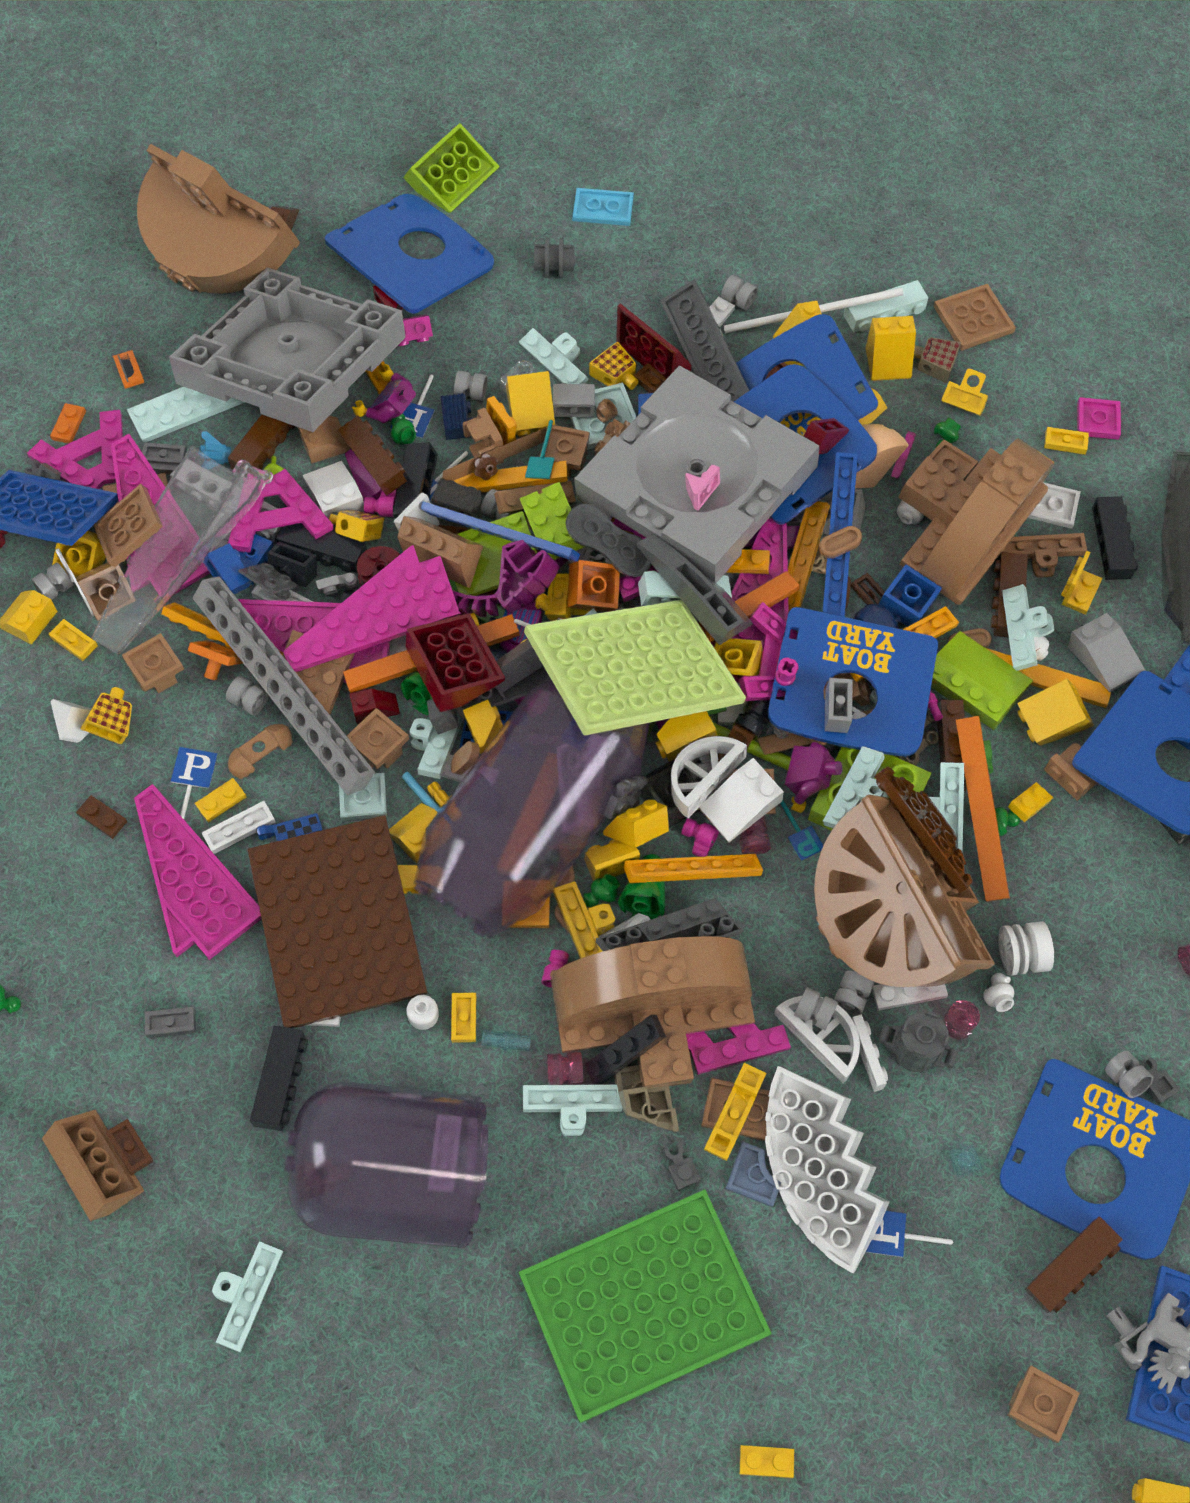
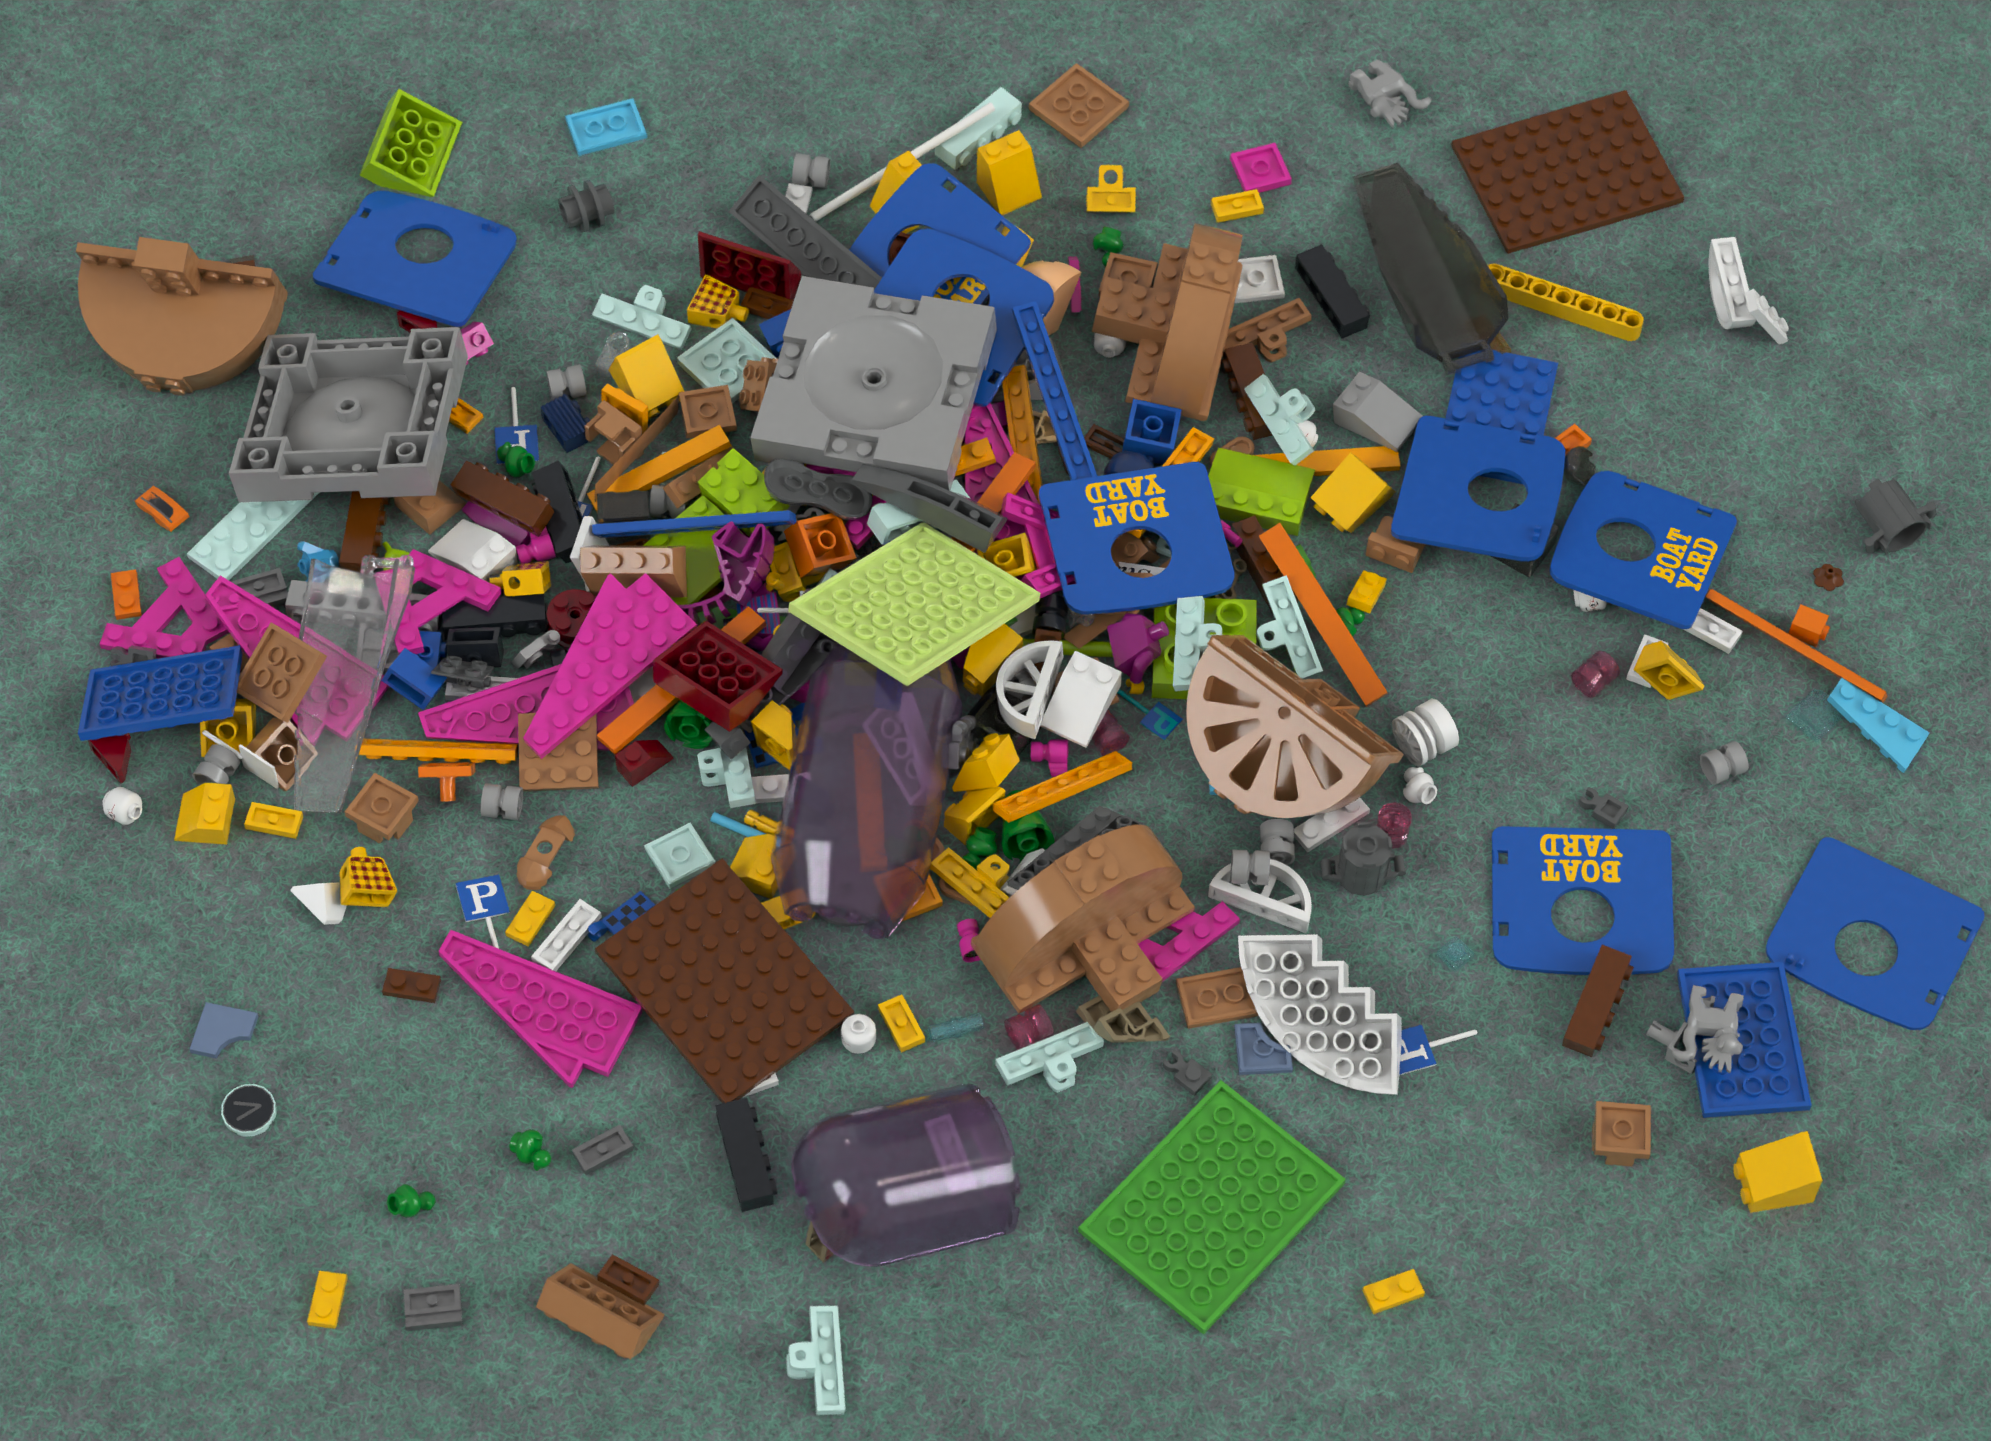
camera: 25 degrees left, 5 degrees down
(112, 996) = (528, 1149): none -> green animal
(283, 685) = (553, 771): light grey brick -> none
(378, 740) = (668, 792): medium nougat panel -> none
(392, 399) = (488, 430): magenta torso -> none
(465, 758) = (774, 770): medium nougat tile -> none
(482, 464) = (634, 464): reddish brown plant -> none
(541, 466) = (694, 441): teal piece -> none
(573, 400) = (694, 355): light grey brick -> none
(608, 410) = (734, 353): medium nougat tile -> none
(625, 1050) = (1083, 981): black plate -> none
(702, 487) = (892, 397): bright pink slope -> none
(735, 1112) = (1216, 995): yellow slope -> none
(786, 671) = (1065, 552): dark pink bush -> none
(825, 433) = (991, 291): dark red slope -> none
(838, 705) = (1136, 565): light grey brick -> none
(840, 542) = (1059, 400): medium nougat tile -> none
(870, 1054) = (1321, 896): white plate -> none
(928, 824) = (1273, 644): reddish brown plate -> none
(937, 357) = (1061, 165): dark tan torso -> none
(1080, 587) = (1321, 355): yellow bracket -> none
(1131, 1077) = (1575, 810): light grey wheel -> none

